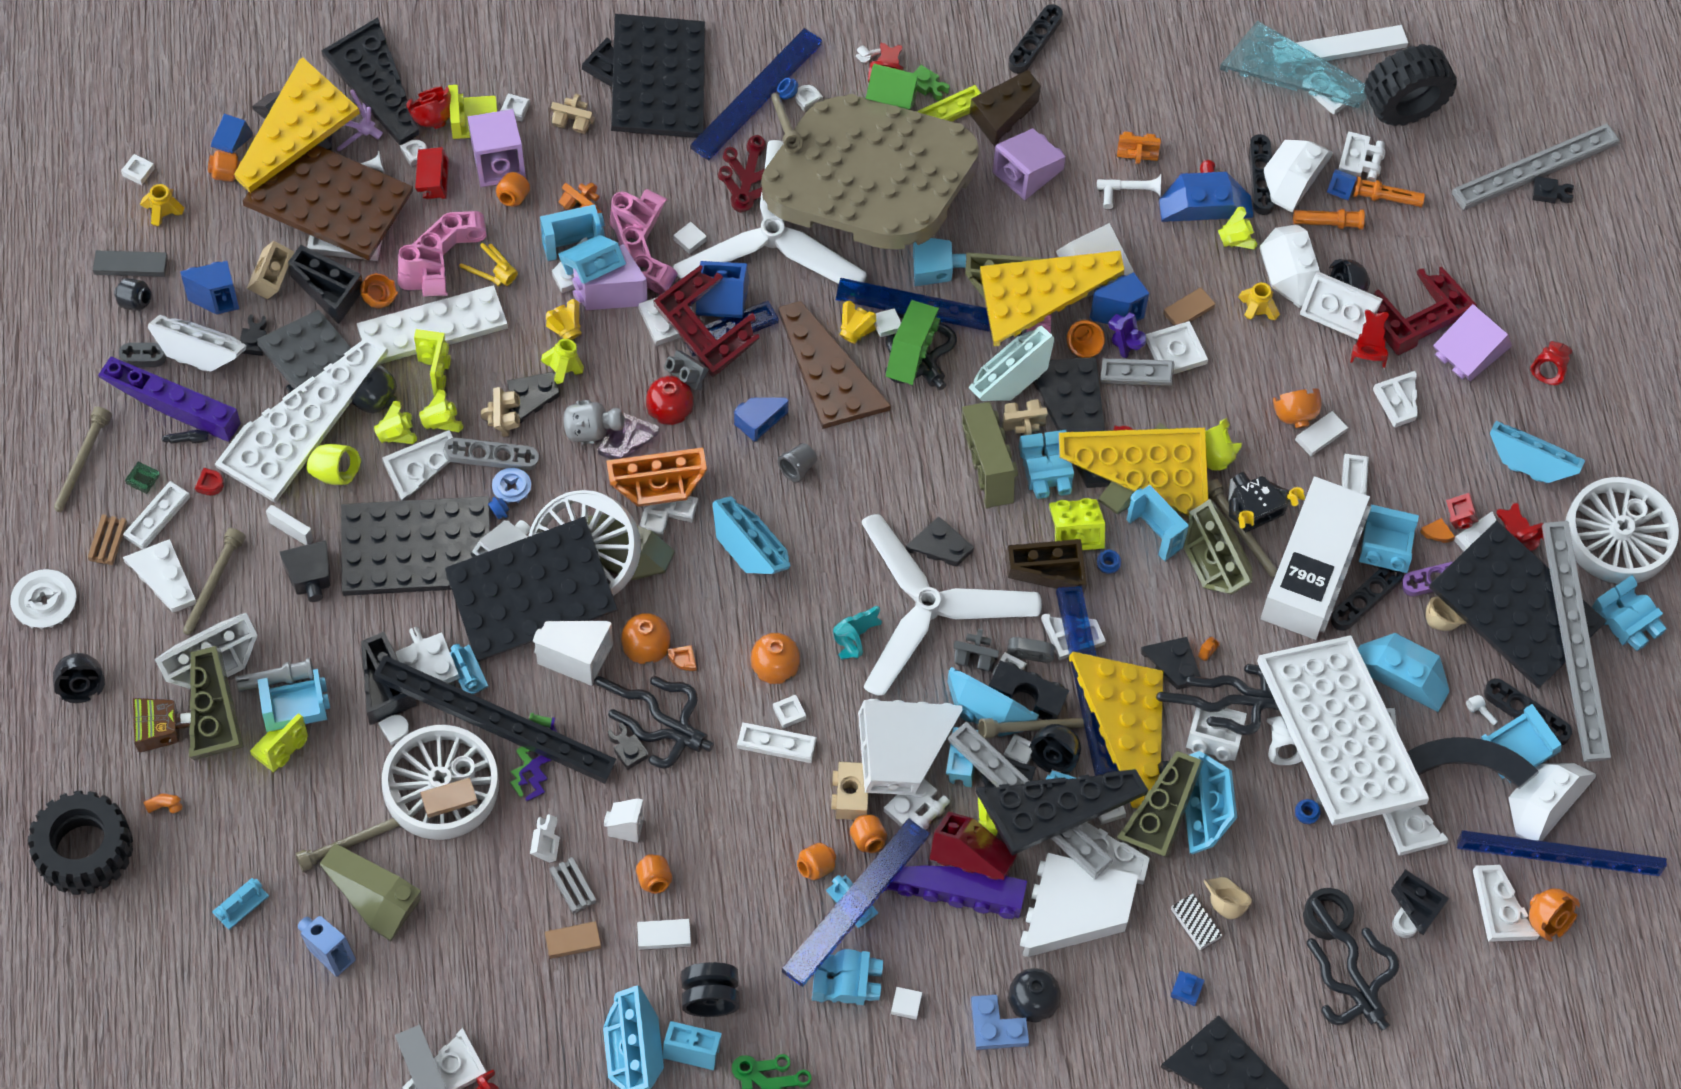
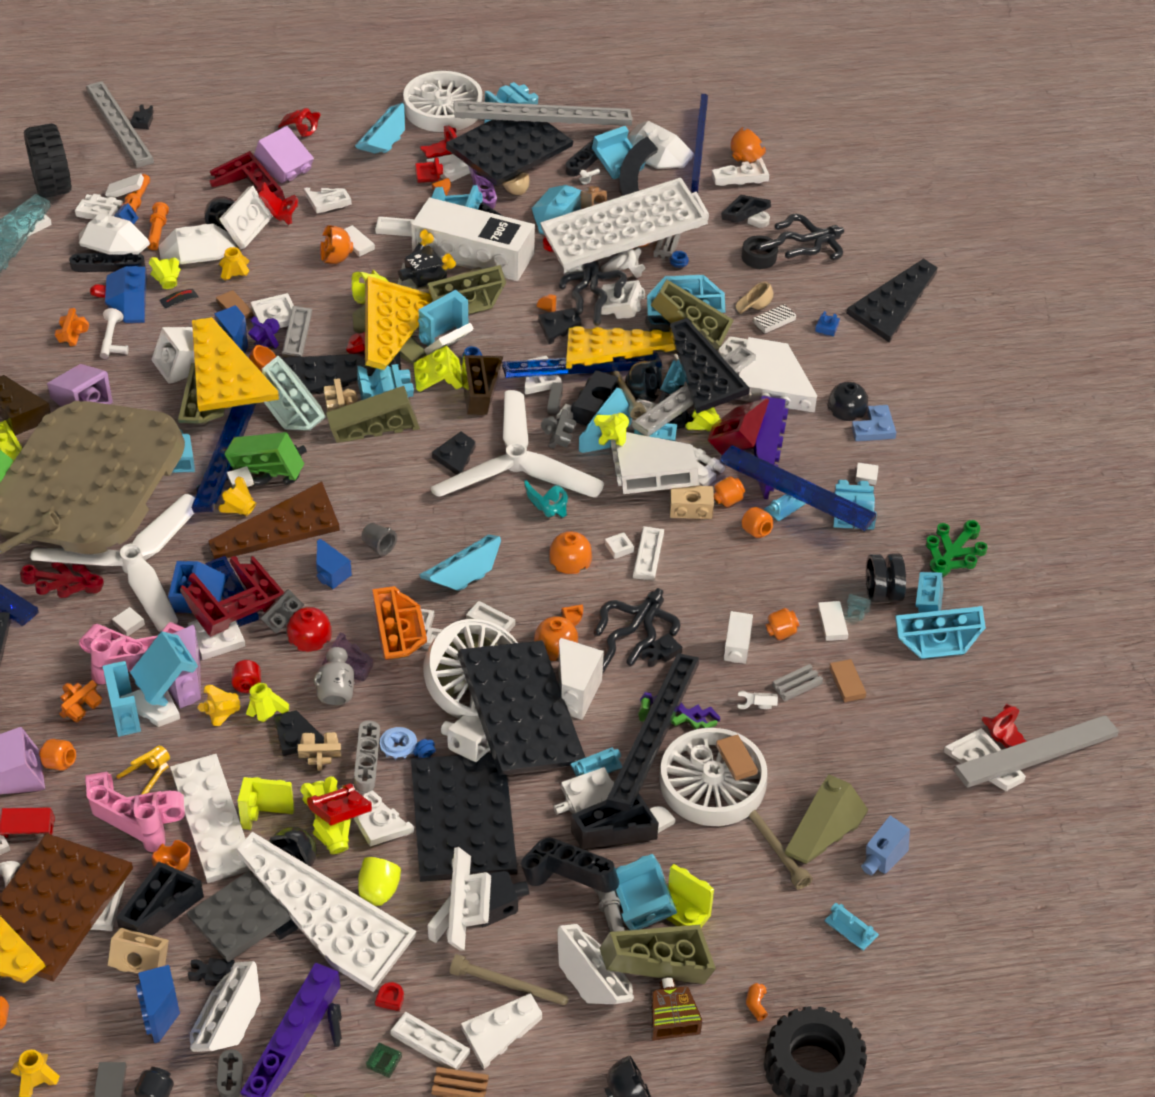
camera: 90 degrees left, 15 degrees down
(291, 533) = (468, 899): none -> white bracket
(342, 623) = (571, 862): none -> black beam
(409, 426) = (339, 805): none -> red plate
(603, 343) = (245, 675): none -> red head
(679, 575) = (487, 613): none -> white tile
(681, 958) = (860, 604): none -> clear light blue tile
(950, 696) = (612, 427): none -> neon yellow rock
(1122, 529) = (449, 339): none -> white tile
(1206, 252) = (177, 297): none -> black sticker
(1398, 178) = (125, 186): none -> white tile
(1407, 705) = (592, 196): none -> medium nougat brick

